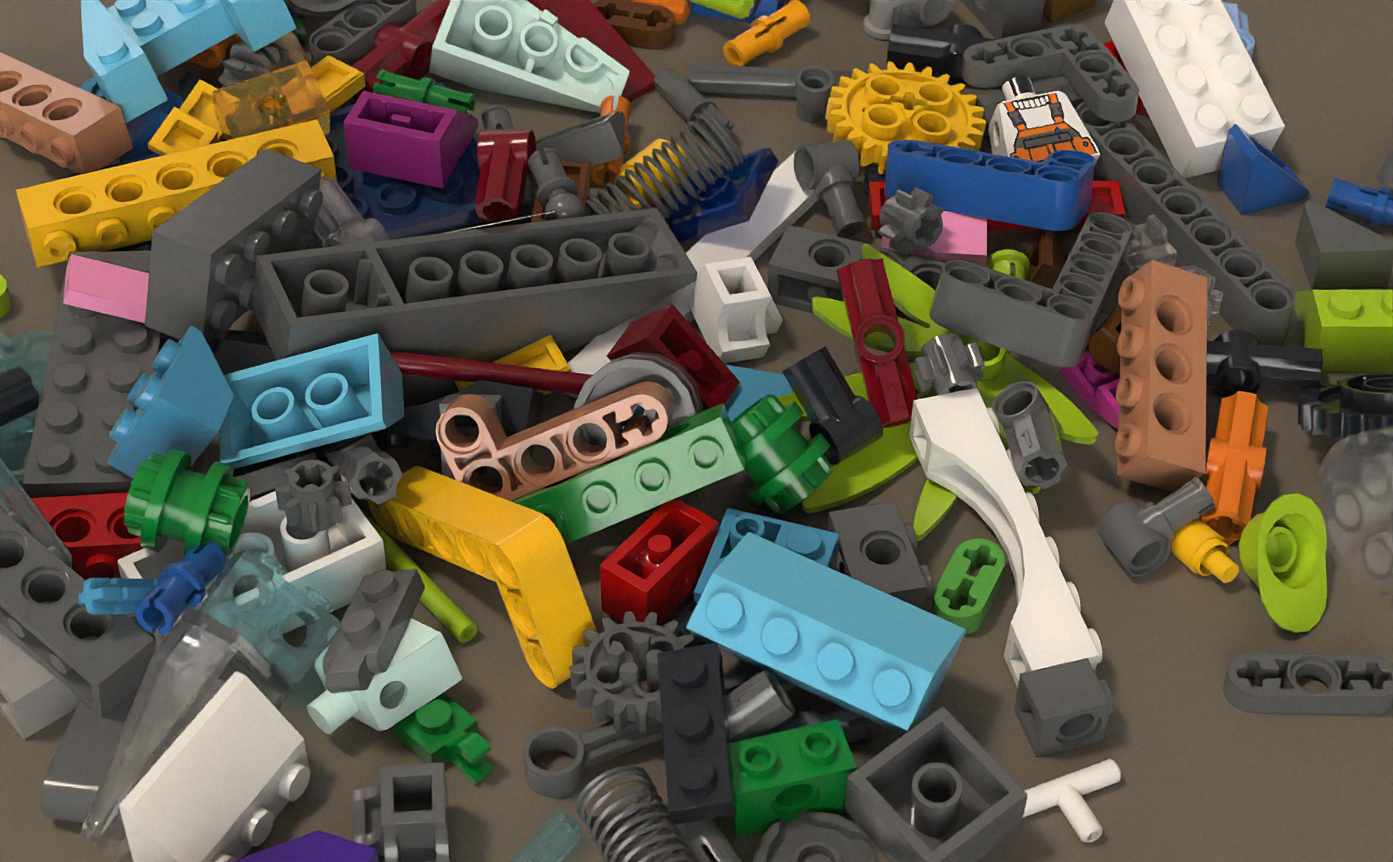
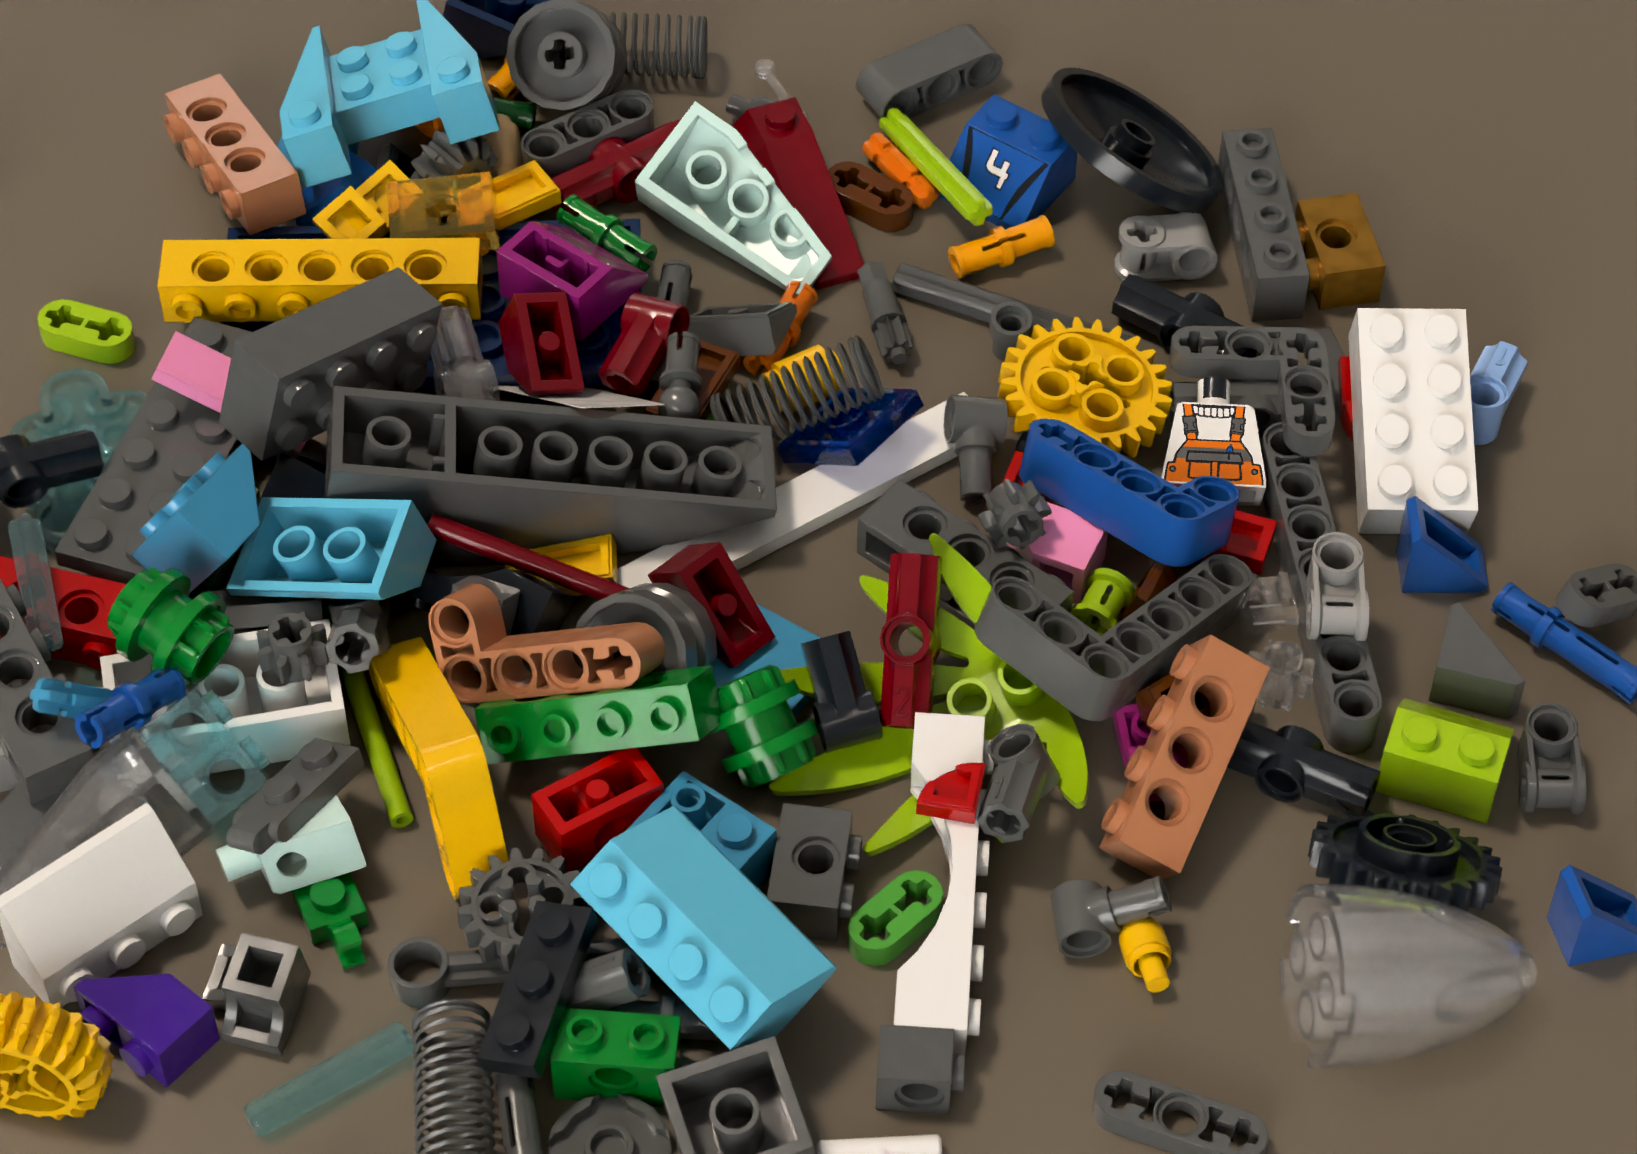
camera: 20 degrees right, 5 degrees up
(415, 190) = (541, 344): none -> dark red slope
(734, 309) = (807, 558): white brick -> none
(948, 365) = (965, 685): dark grey gear -> none
(987, 457) = (953, 794): none -> red tile
(1215, 210) = (1337, 588): none -> light grey piece
(1235, 464) = (1224, 873): orange piece -> none
(1287, 561) = (1216, 993): lime piece -> none

